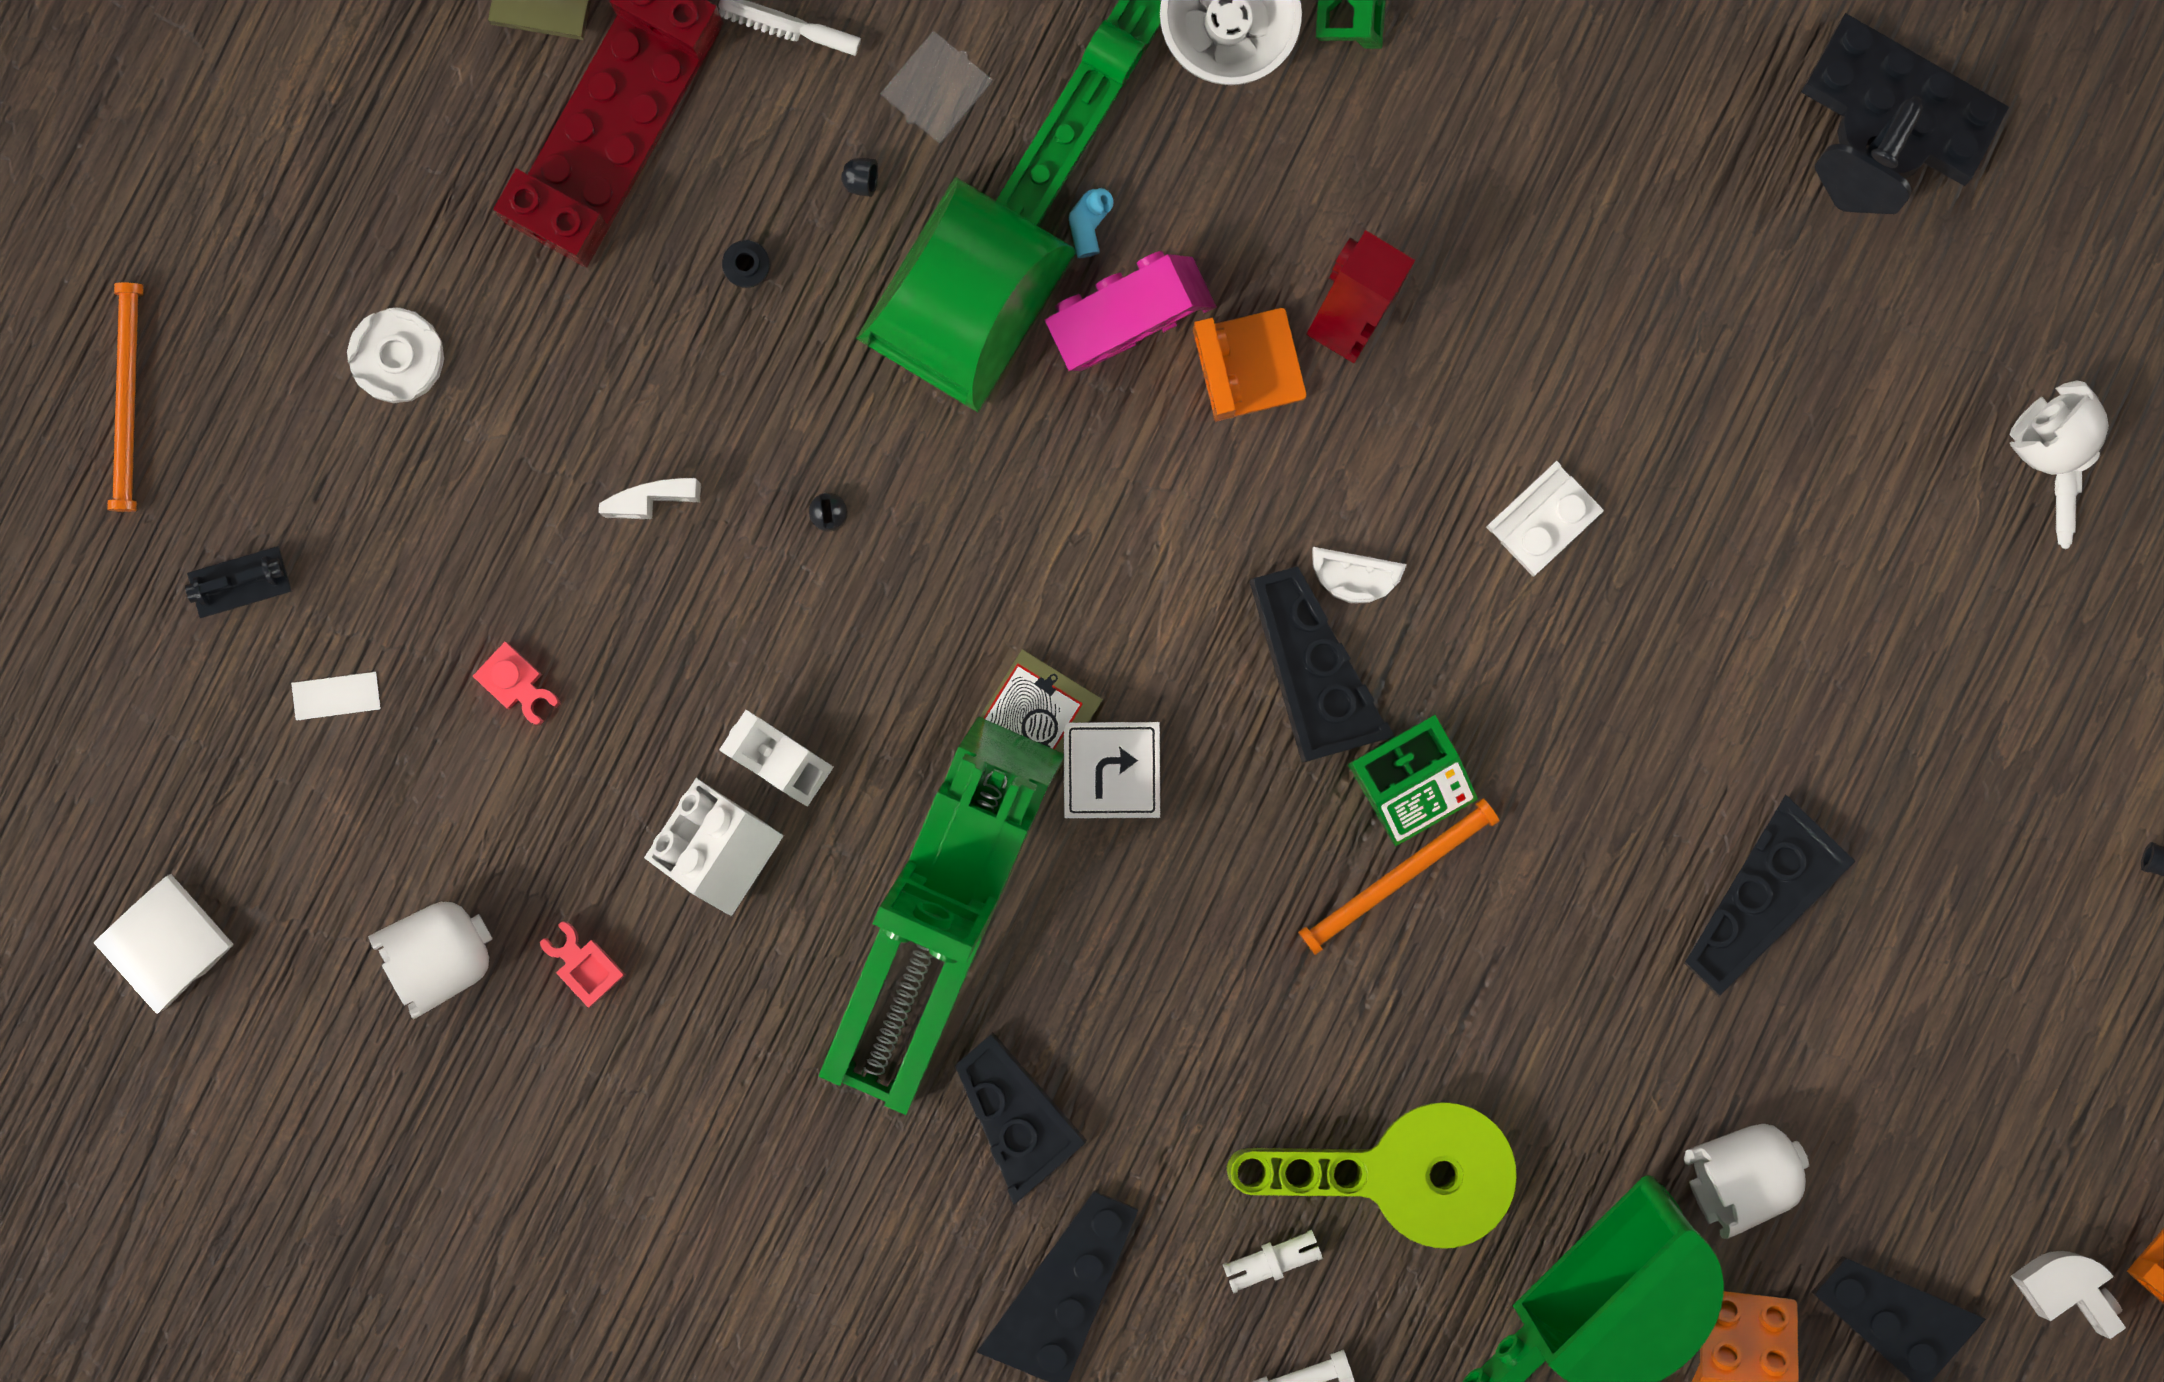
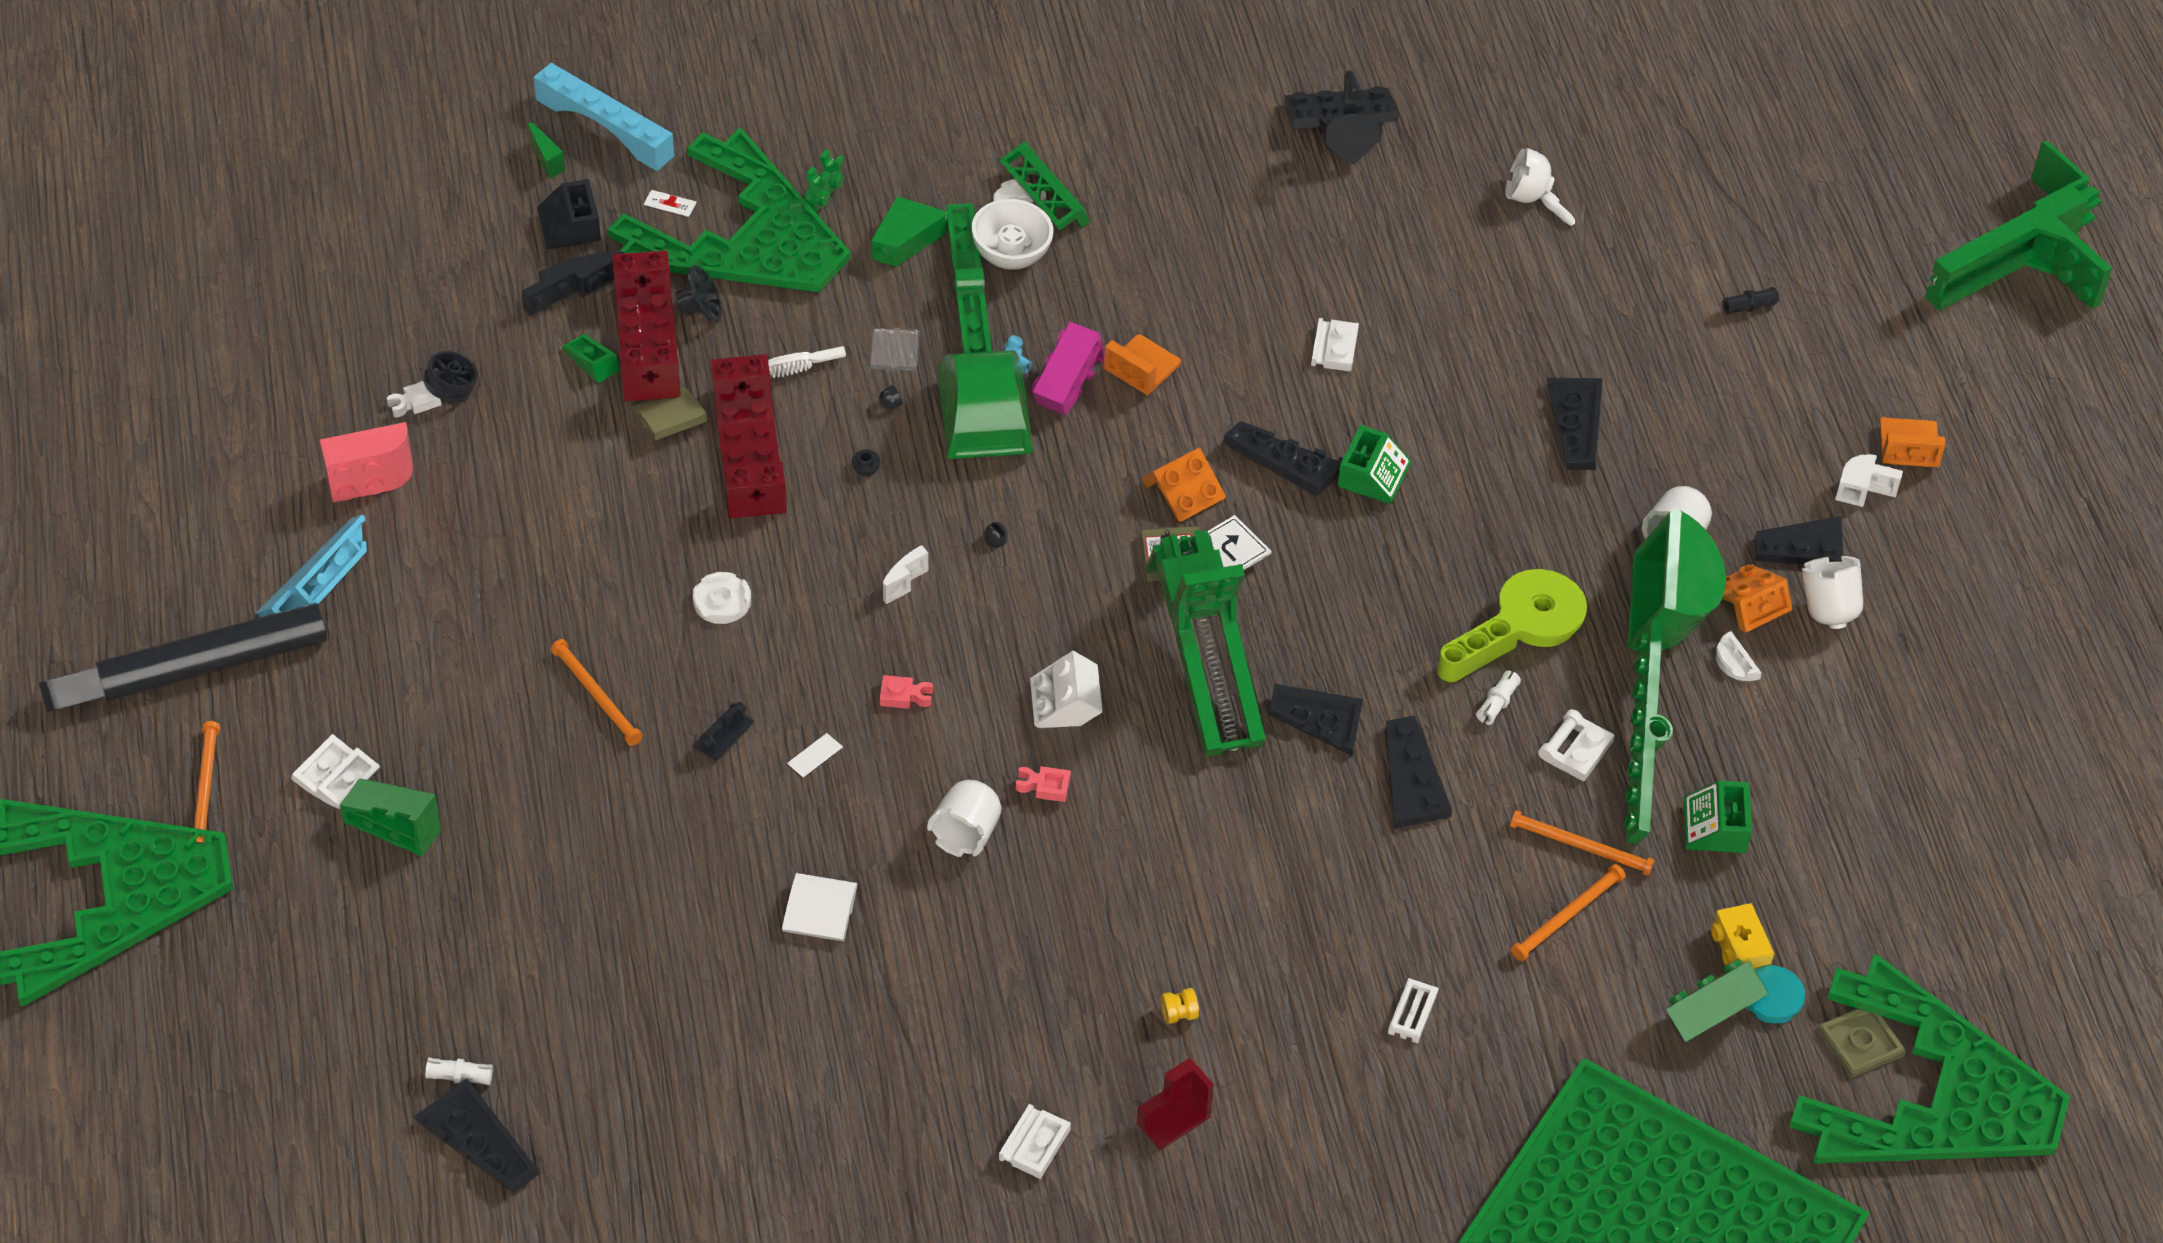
camera: 40 degrees left, 35 degrees down
(776, 758) = (1065, 636): white brick -> none
(1139, 615) = (1187, 484): none -> orange bracket
(1355, 576) = (1269, 415): white tile -> none
(1363, 288) = (1170, 292): dark red wedge -> none
(1399, 876) = (1389, 560): orange bar -> none

